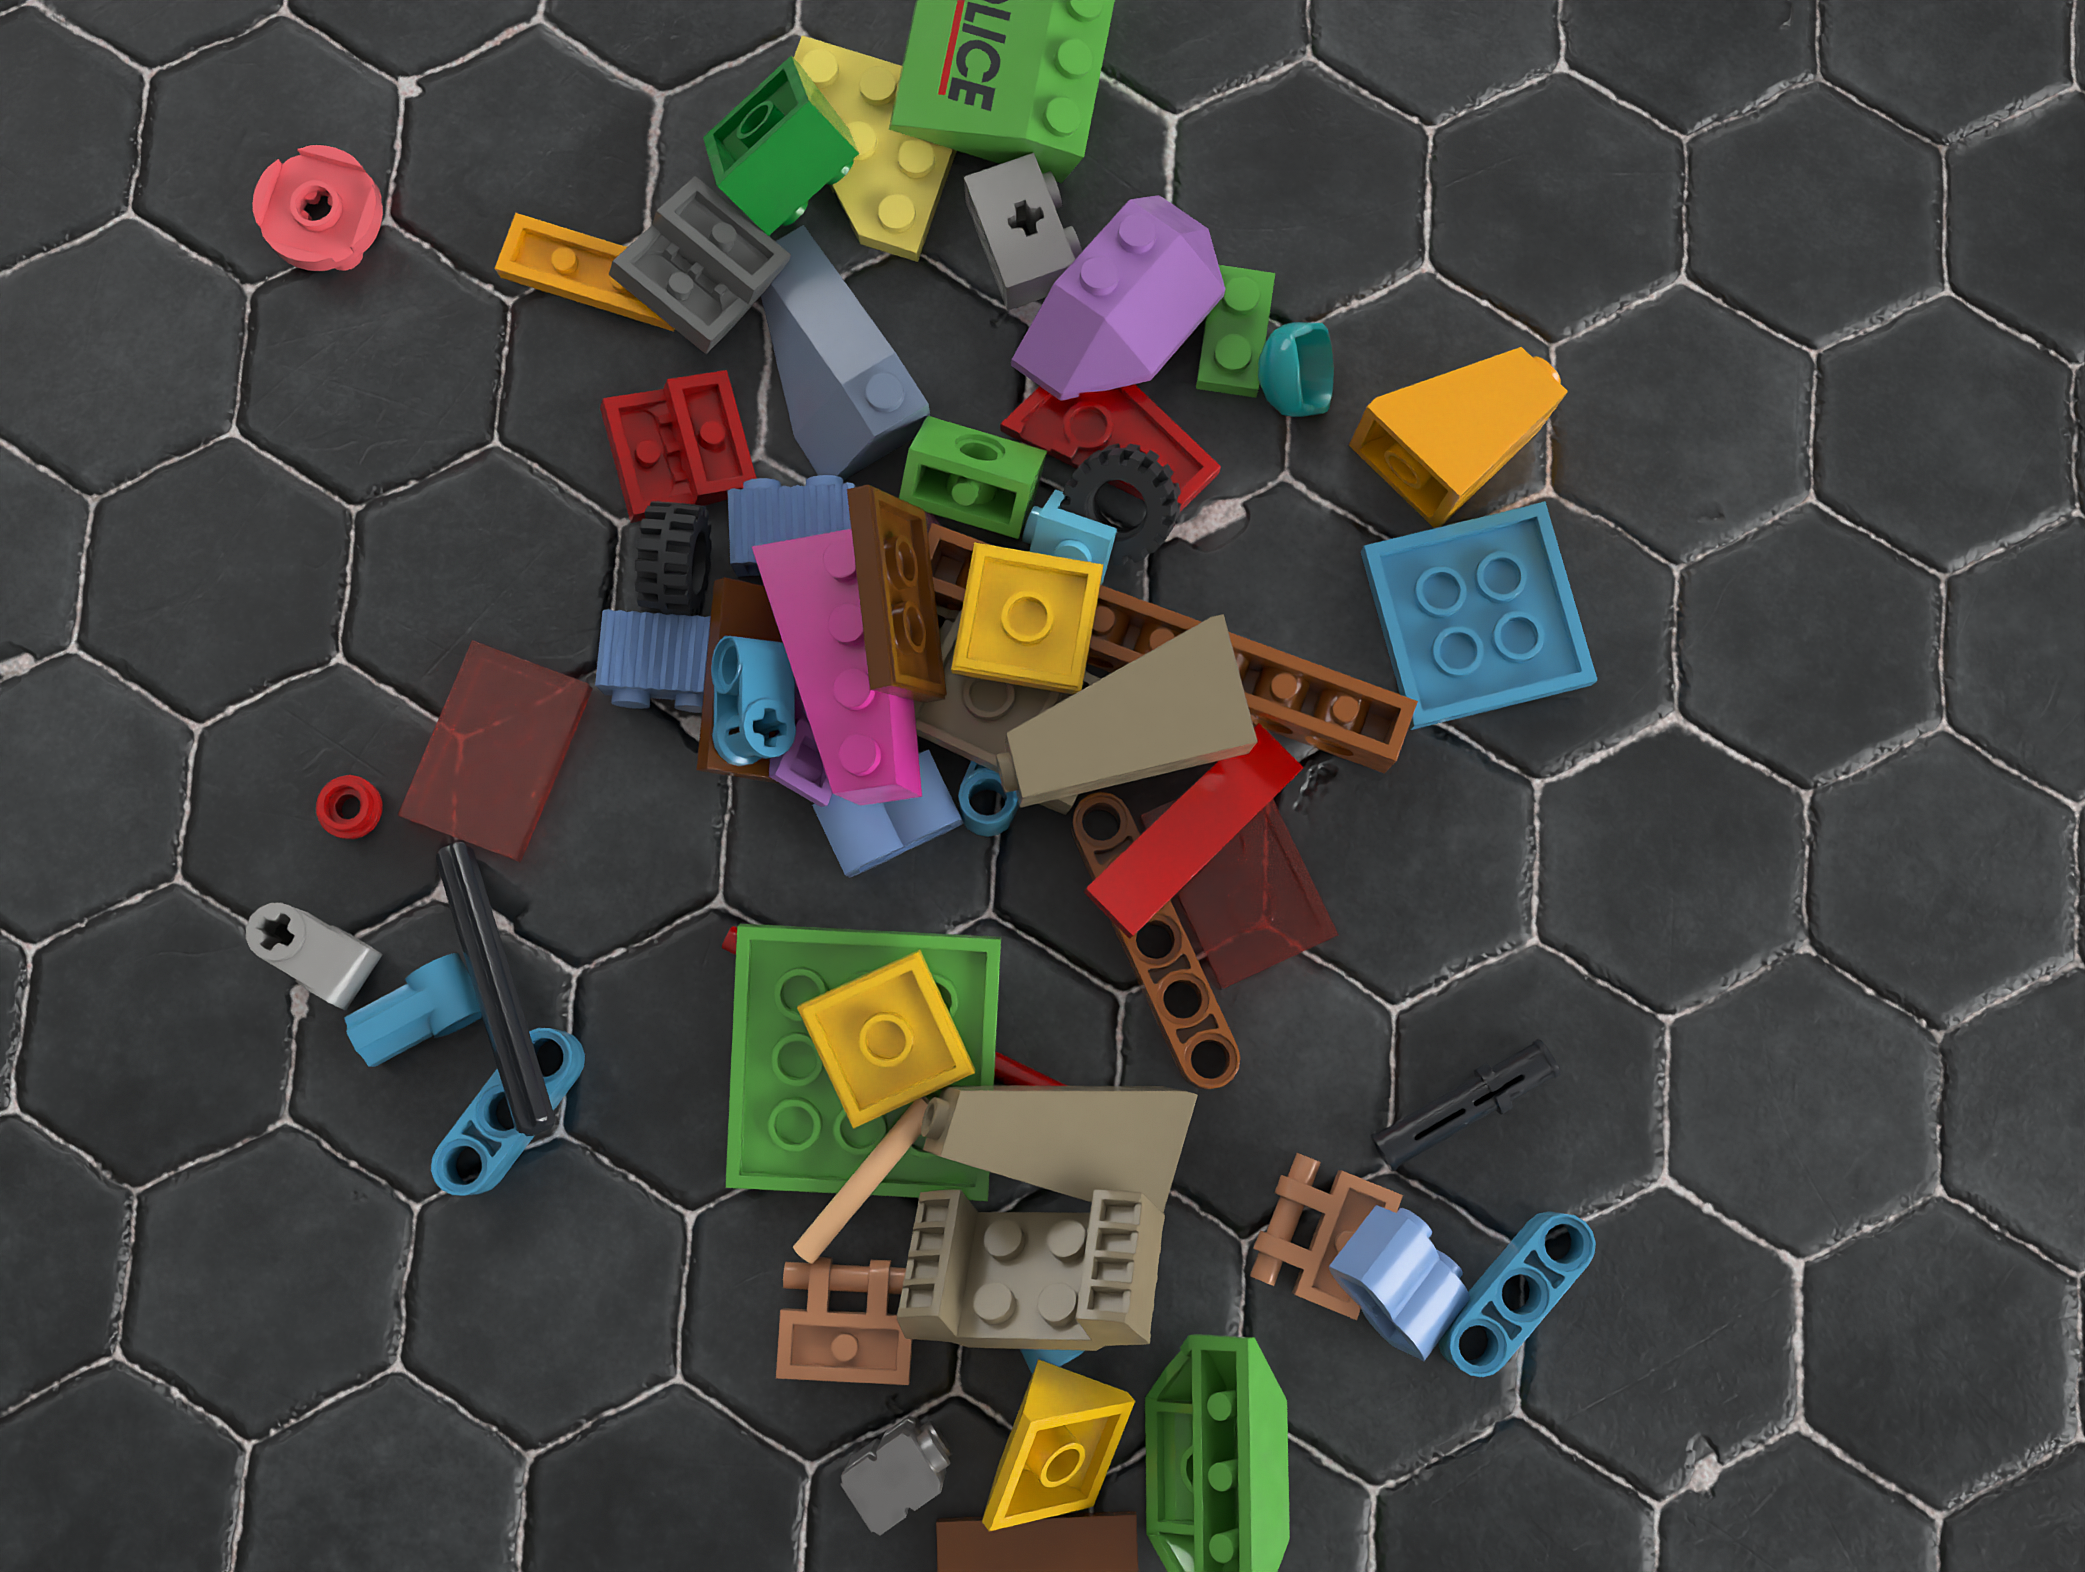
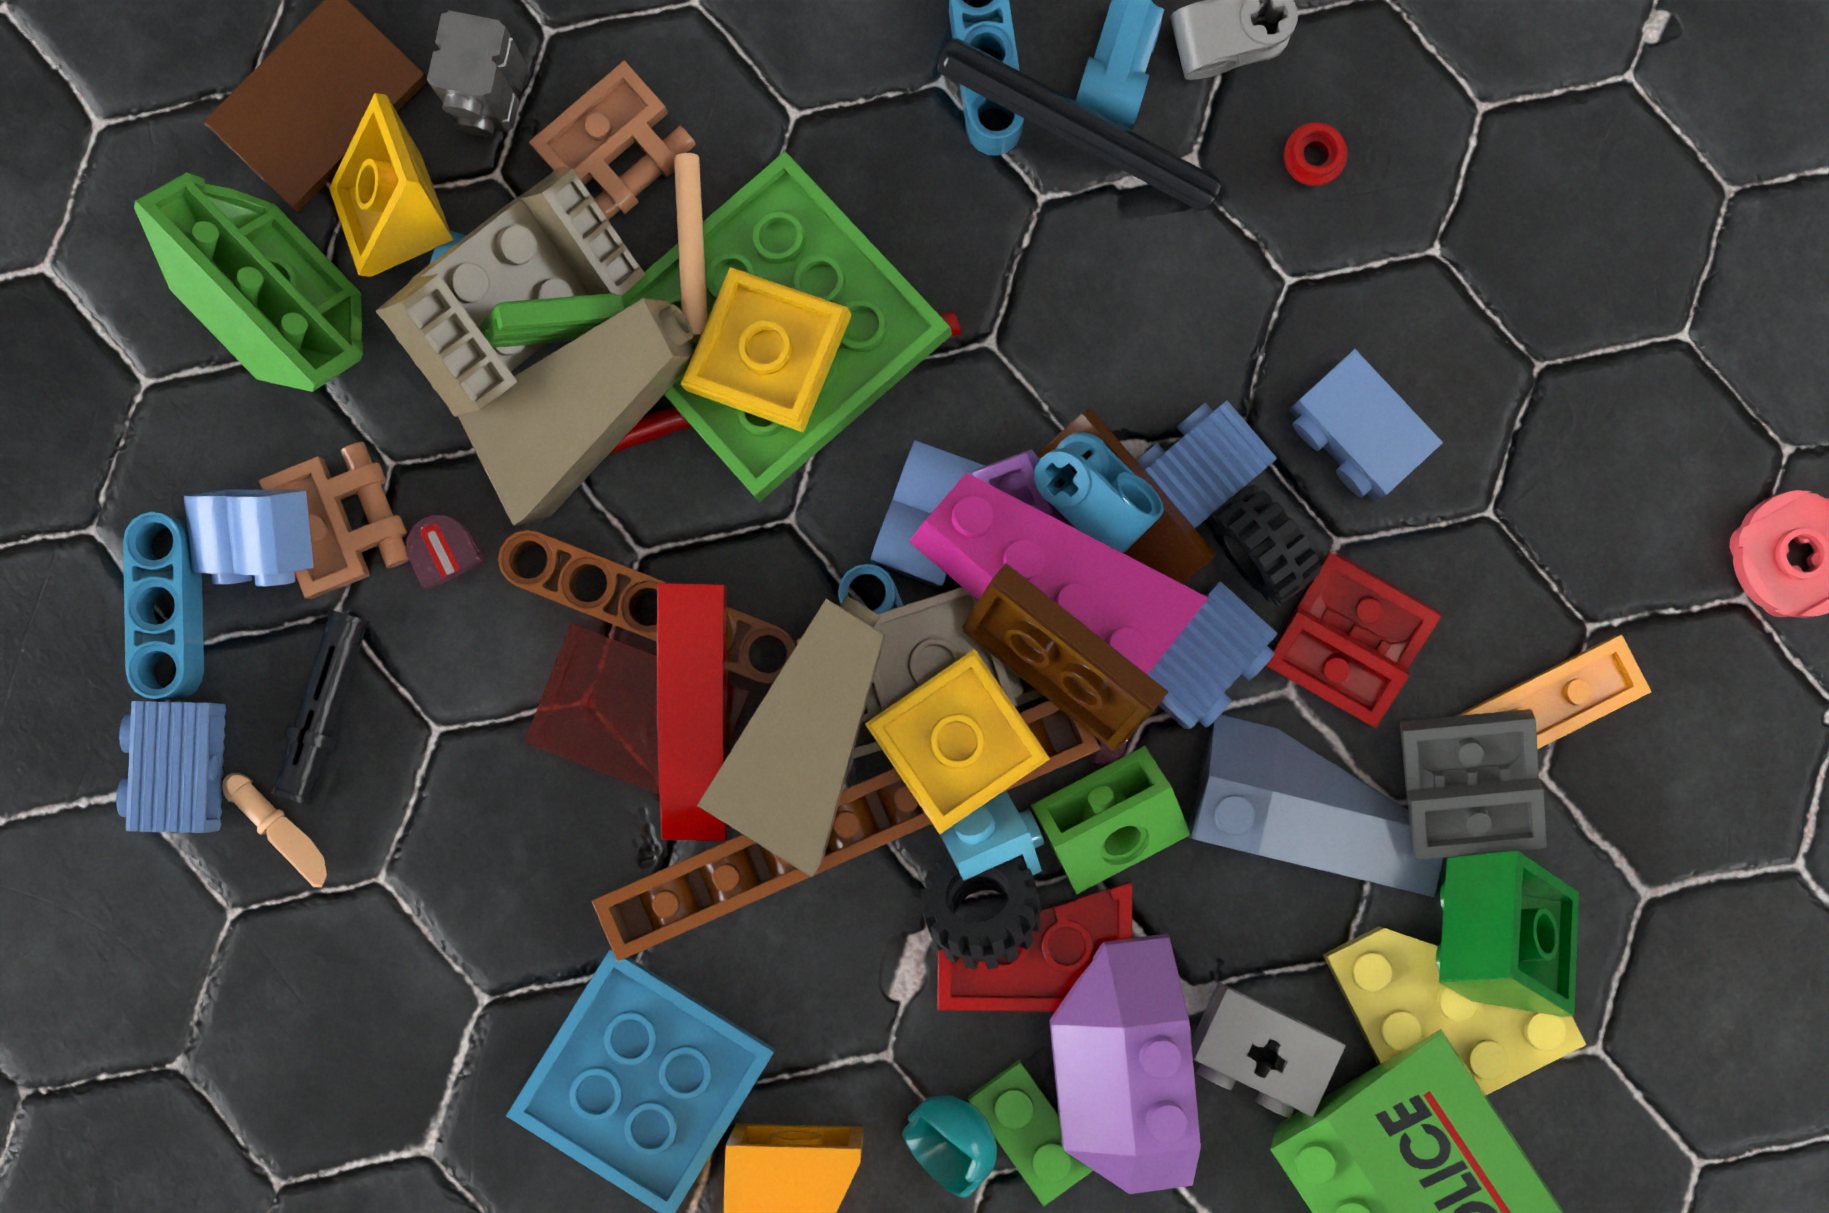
camera: 135 degrees right, 5 degrees up
(495, 751) = (1254, 292): clear red tile -> none
(520, 578) = (1363, 428): none -> medium blue brick
(1022, 1214) = (547, 319): none -> bright green tile
(1267, 1137) = (440, 550): none -> clear pink tile
(1578, 1042) = (280, 831): none -> light nougat piece
(1617, 1163) = (172, 767): none -> medium blue brick

